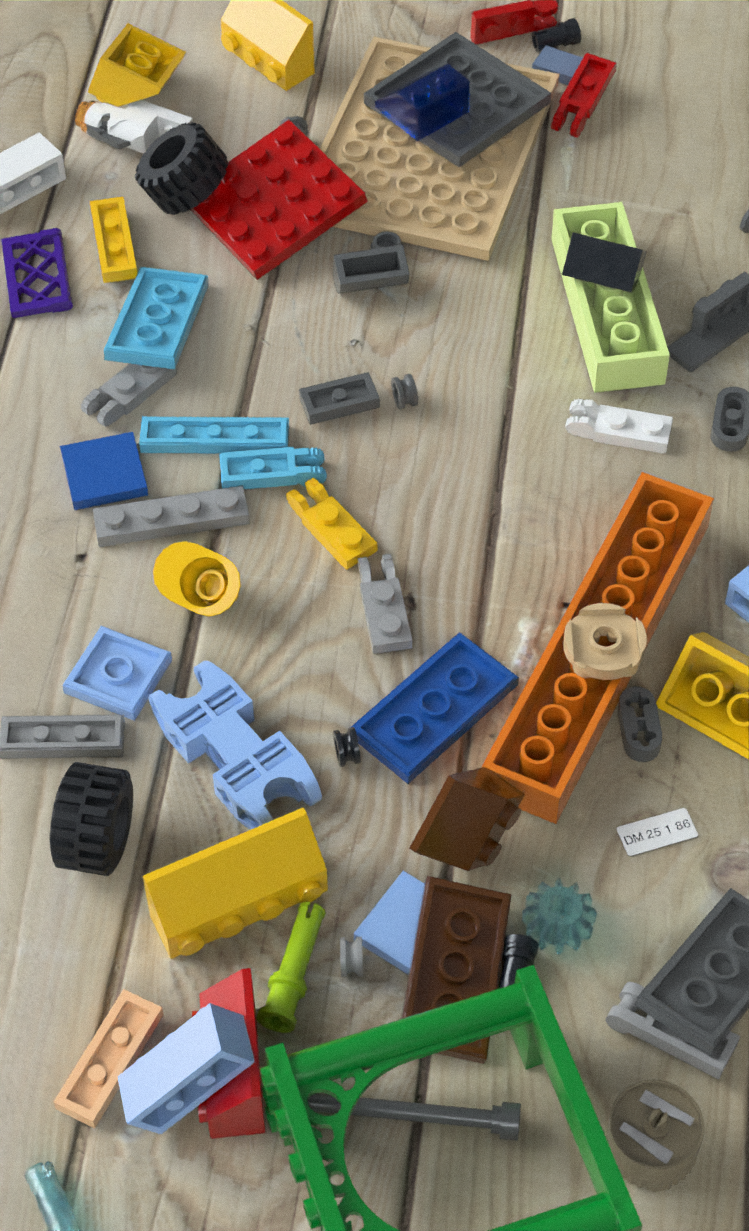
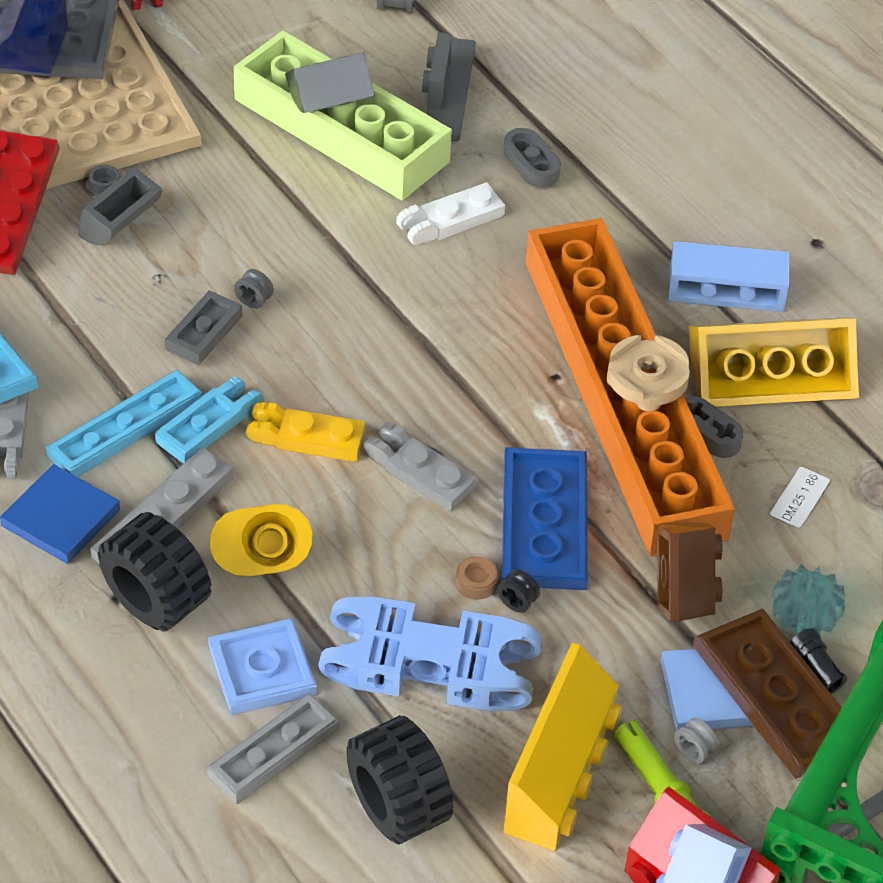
camera: 45 degrees left, 5 degrees down
(95, 550) = (154, 571): none -> black tyre
(333, 714) = (477, 578): none -> medium nougat tile

